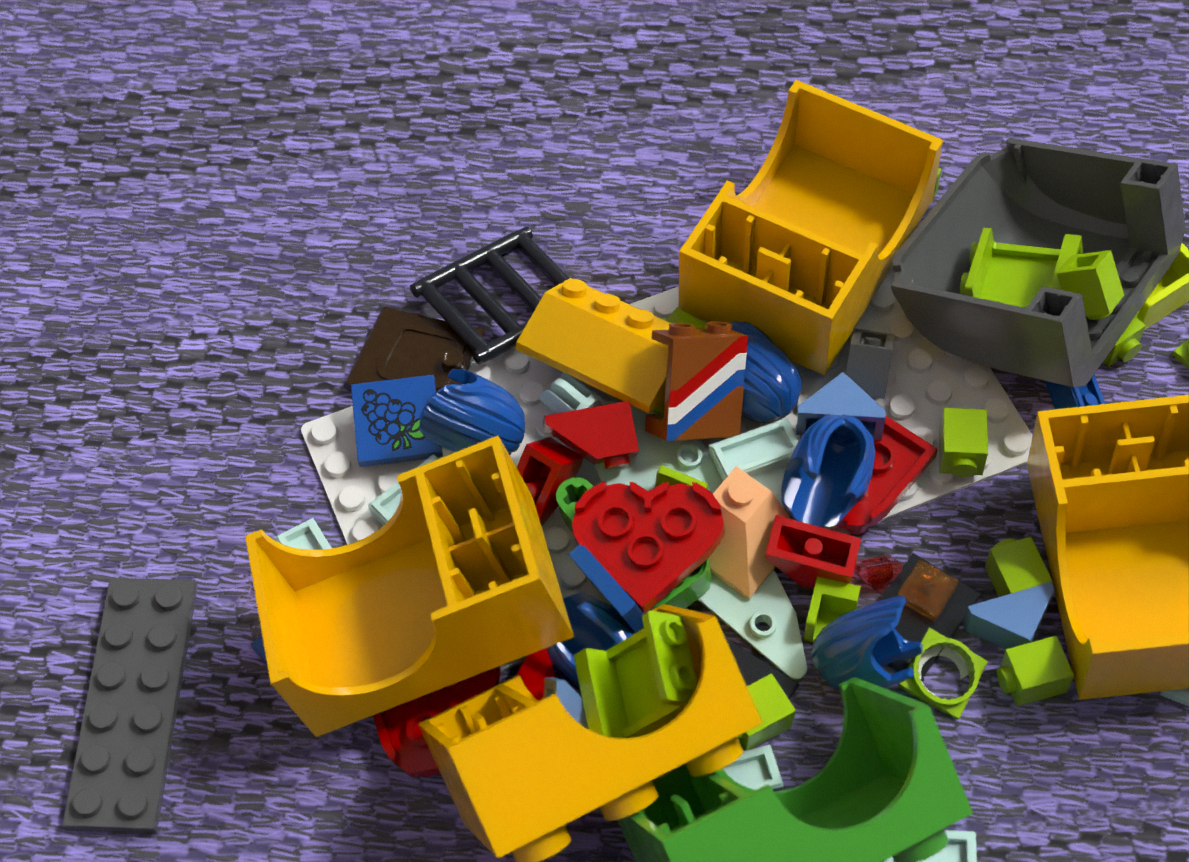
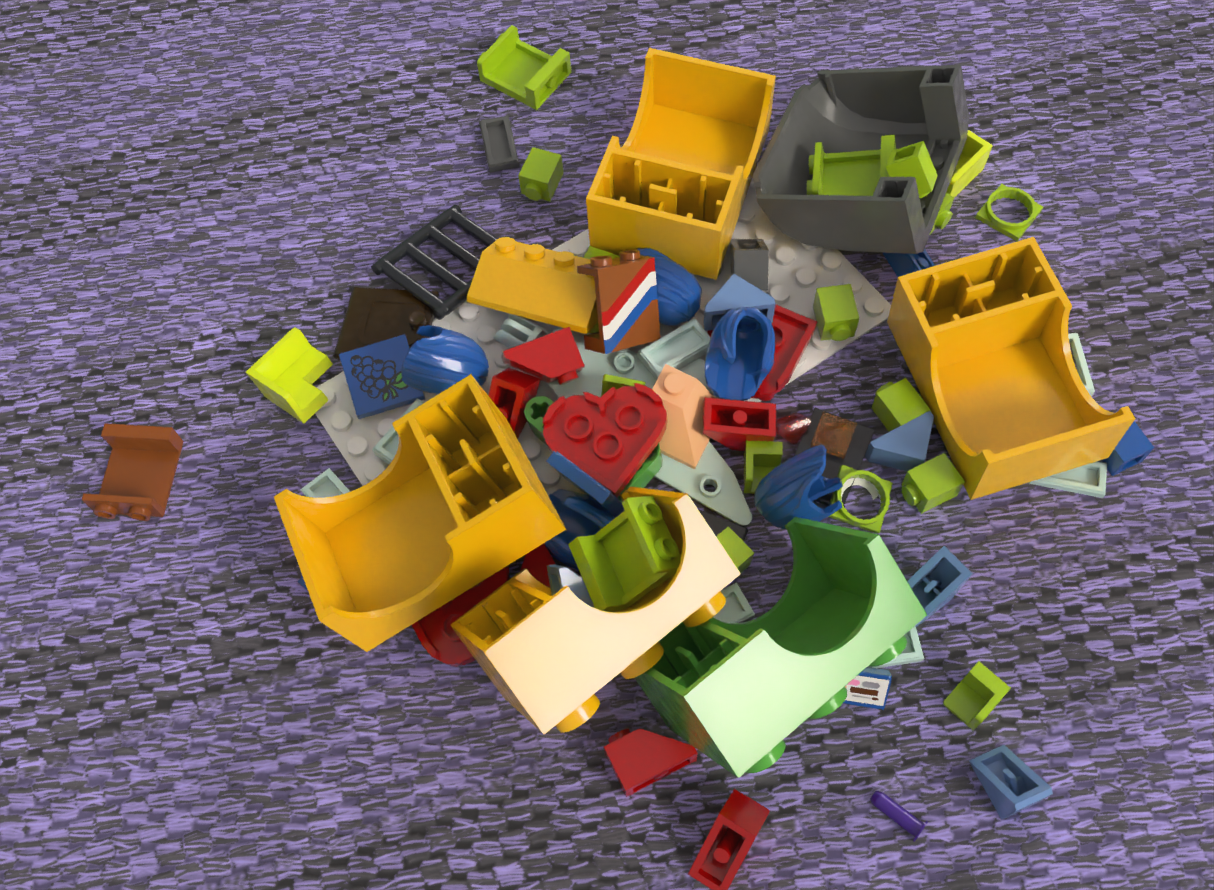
camera: 10 degrees left, 5 degrees up
(89, 480) = (137, 471): none -> dark orange panel
(131, 707) = (207, 654): dark grey plate -> none
(287, 397) = (288, 373): none -> neon yellow panel
(596, 160) = (499, 144): none -> dark grey tile
(638, 208) = (541, 174): none -> lime brick
(644, 72) = (523, 69): none -> lime panel
(1006, 792) = (938, 581): none -> medium blue slope

